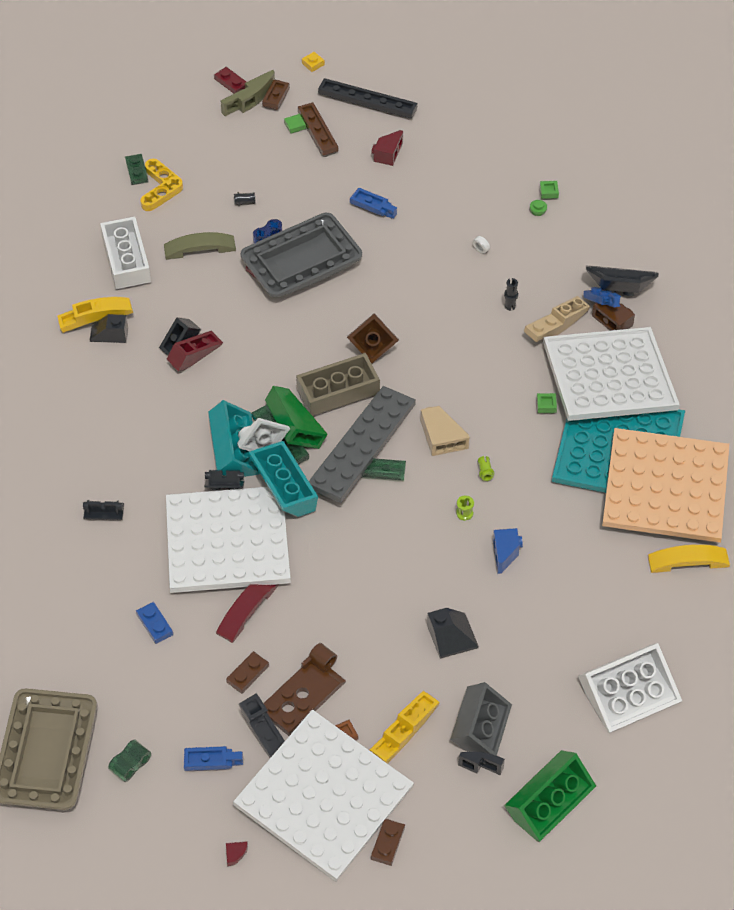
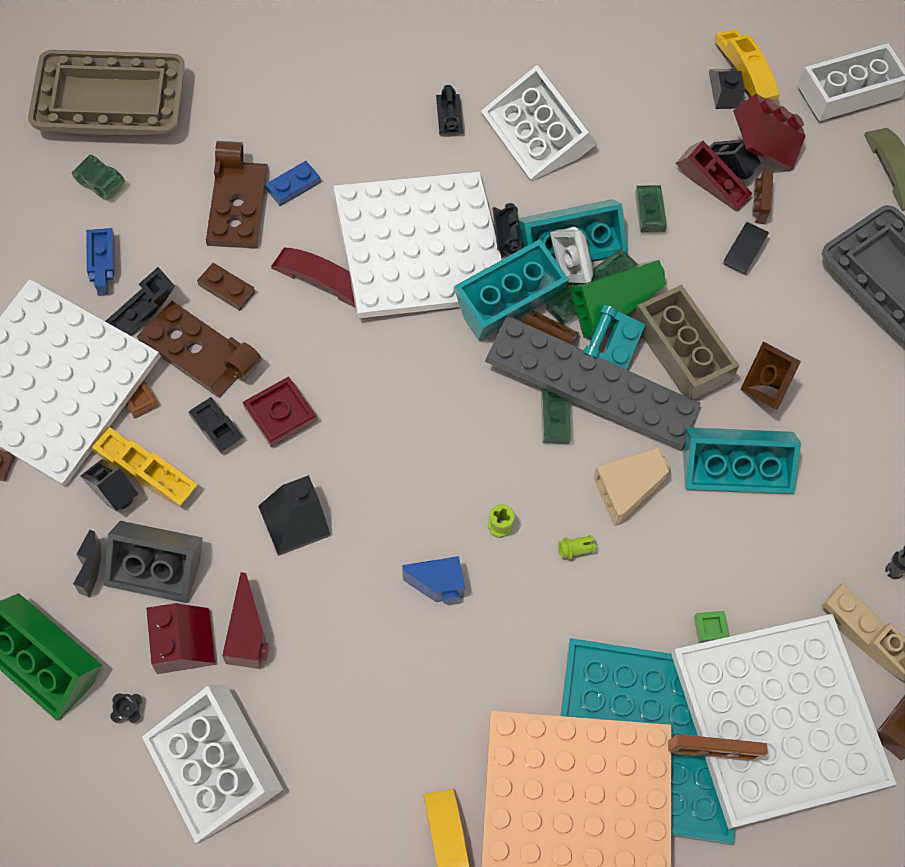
camera: 80 degrees right, 10 degrees up
(128, 451) = (538, 125): none -> white slope
(146, 657) = (236, 182): none -> reddish brown hinge
(169, 304) = (770, 131): none -> dark red slope
(216, 391) = (650, 208): none -> clear green plate
(217, 323) = (762, 203): none -> reddish brown plate
(258, 340) = (745, 247): none -> black slope
(315, 461) = (551, 327): none -> reddish brown plate
(330, 423) = (622, 338): none -> teal plate
(365, 638) = (279, 411): none -> dark red plate
(374, 680) = (215, 425): none -> black slope
(417, 749) = (110, 485): none -> black slope
(428, 369) = (741, 460): none -> teal slope
(535, 663) = (245, 638): none -> dark red slope
(541, 707) = (180, 637): none -> dark red slope
(589, 735) = (122, 700): none -> black plate
(635, 397) = (717, 747): none -> dark orange tile

